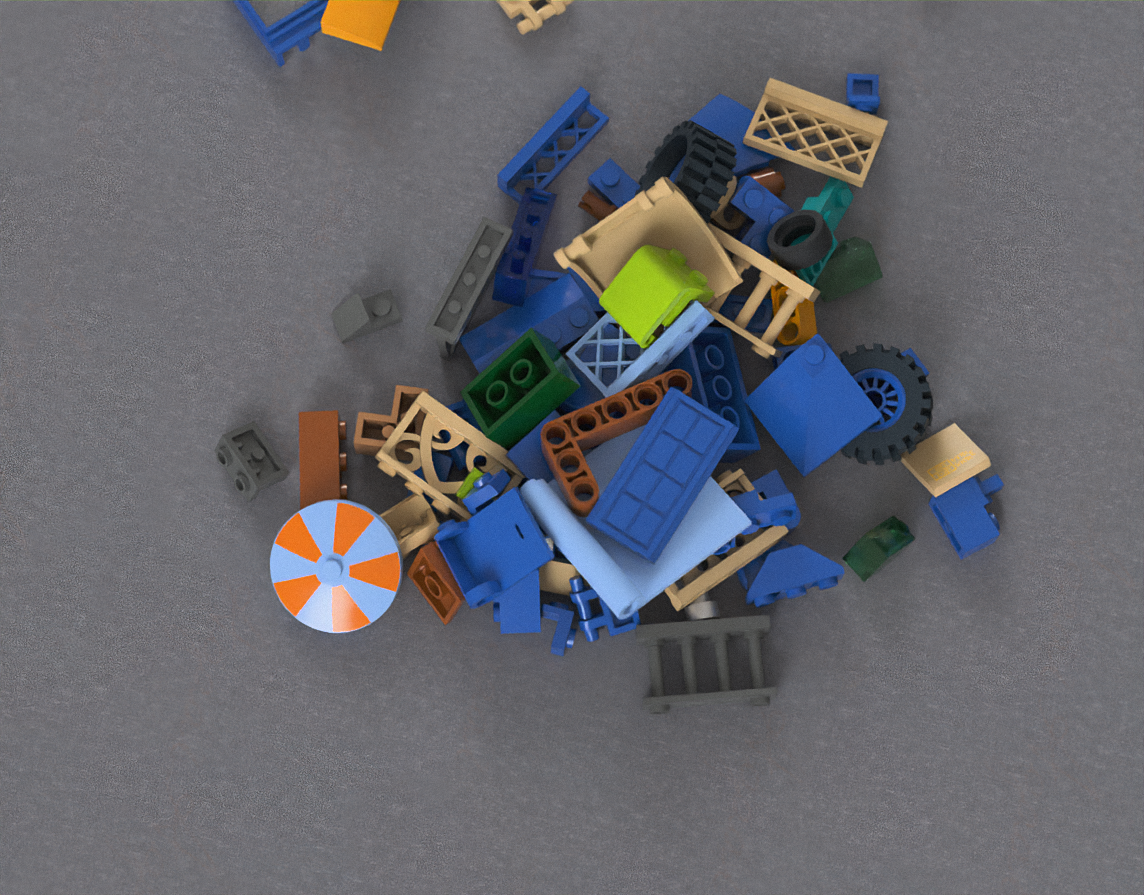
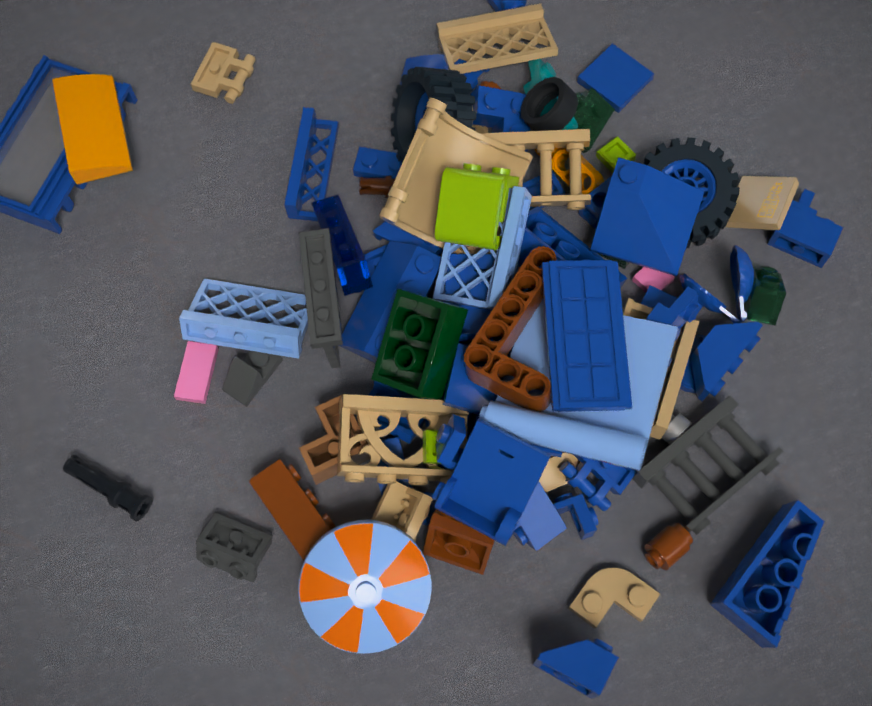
camera: 30 degrees left, 5 degrees down
(183, 350) = (117, 493): none -> black pin
(318, 283) = (196, 372): none -> bright pink tile
(381, 273) = (245, 332): none -> light blue fence
(467, 746) = (580, 665): none -> blue slope
(541, 706) = (611, 587): none -> tan plate
(618, 707) = (668, 546): none -> dark orange brick
(677, 788) = (766, 579): none -> blue wedge
(787, 469) = (655, 278): none -> bright pink tile
(818, 509) = (742, 280): none -> blue animal
(850, 323) = (611, 151): none -> lime tile
(910, 244) = (615, 77): none -> blue tile

